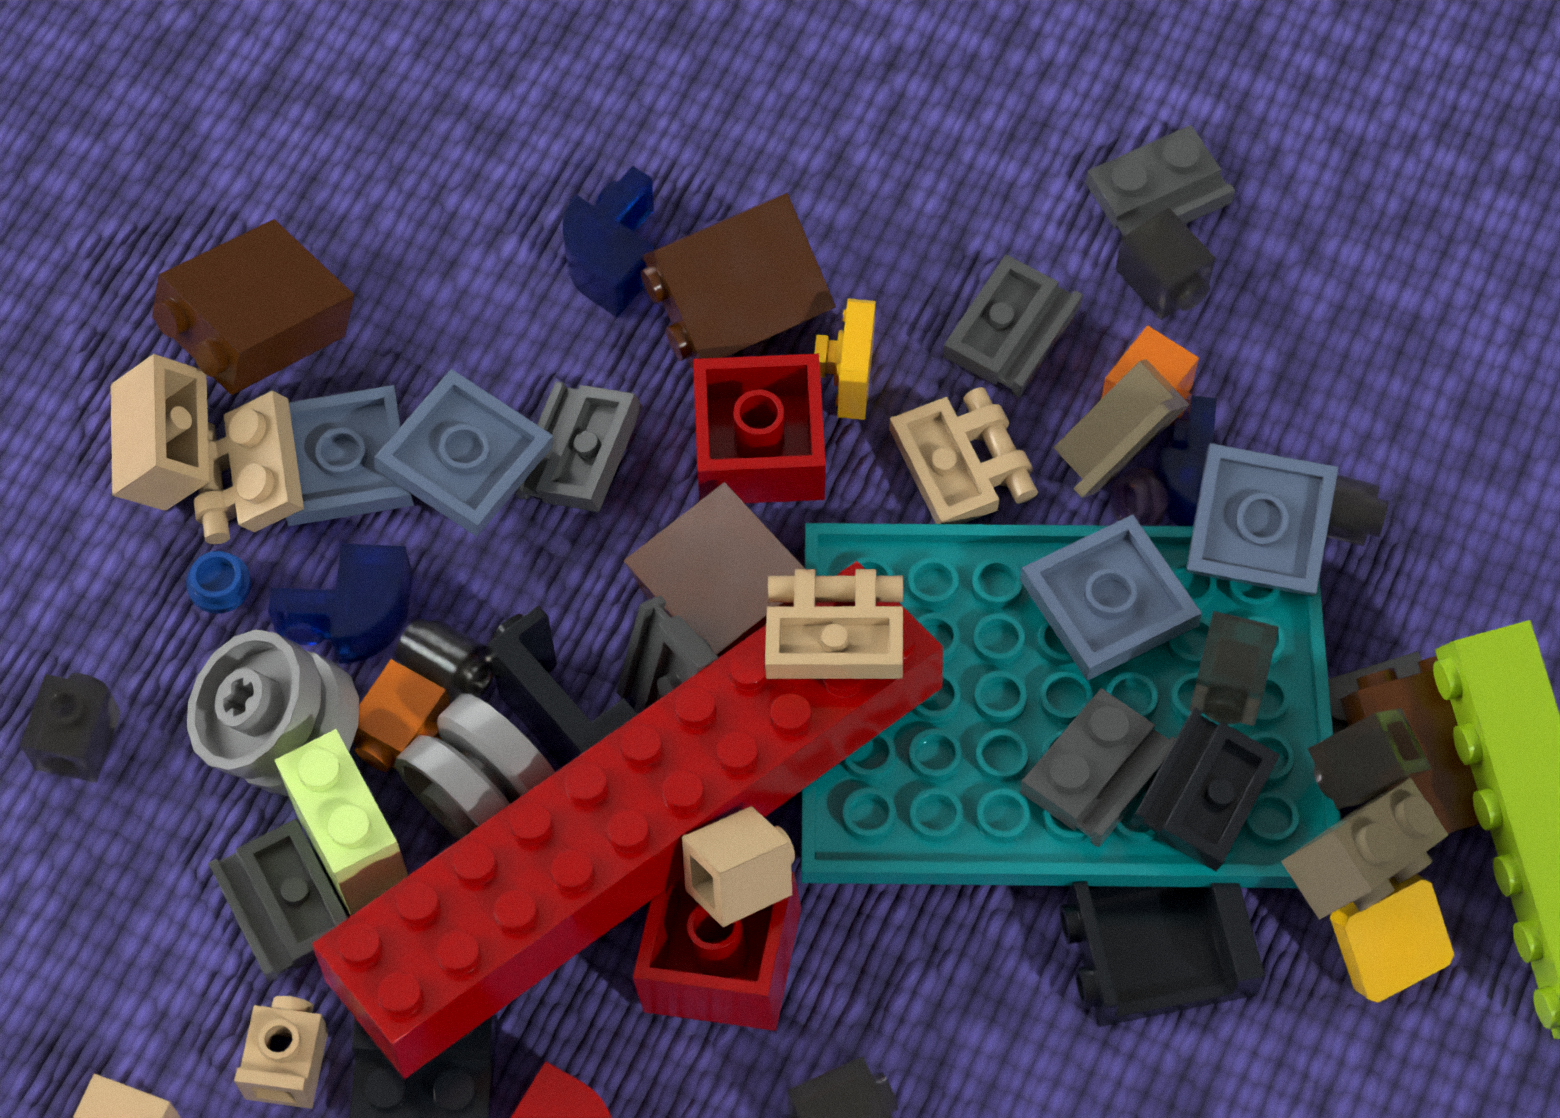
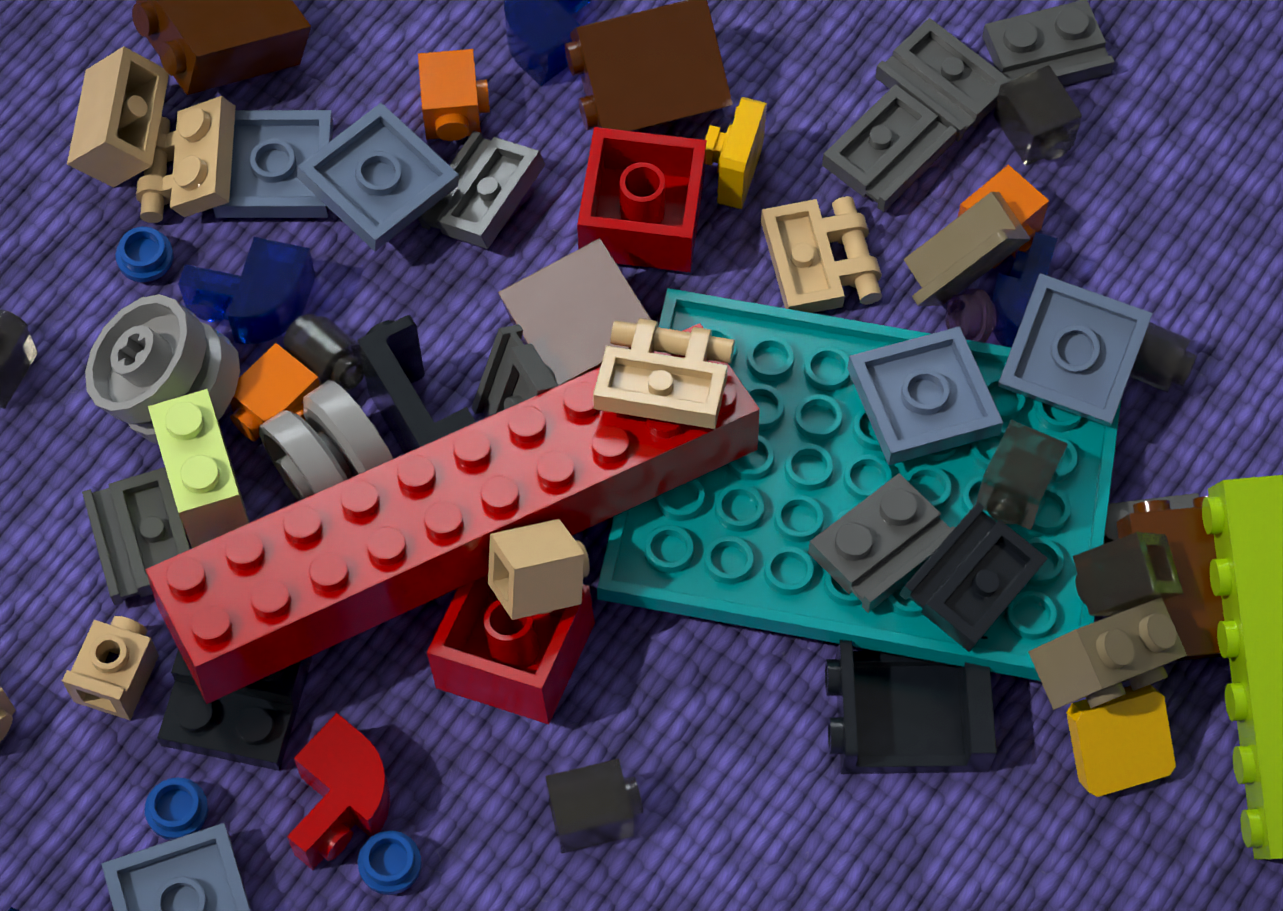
camera: 10 degrees right, 0 degrees up
(523, 345) = (451, 94): none -> orange brick
(1055, 236) = (943, 76): none -> dark grey plate

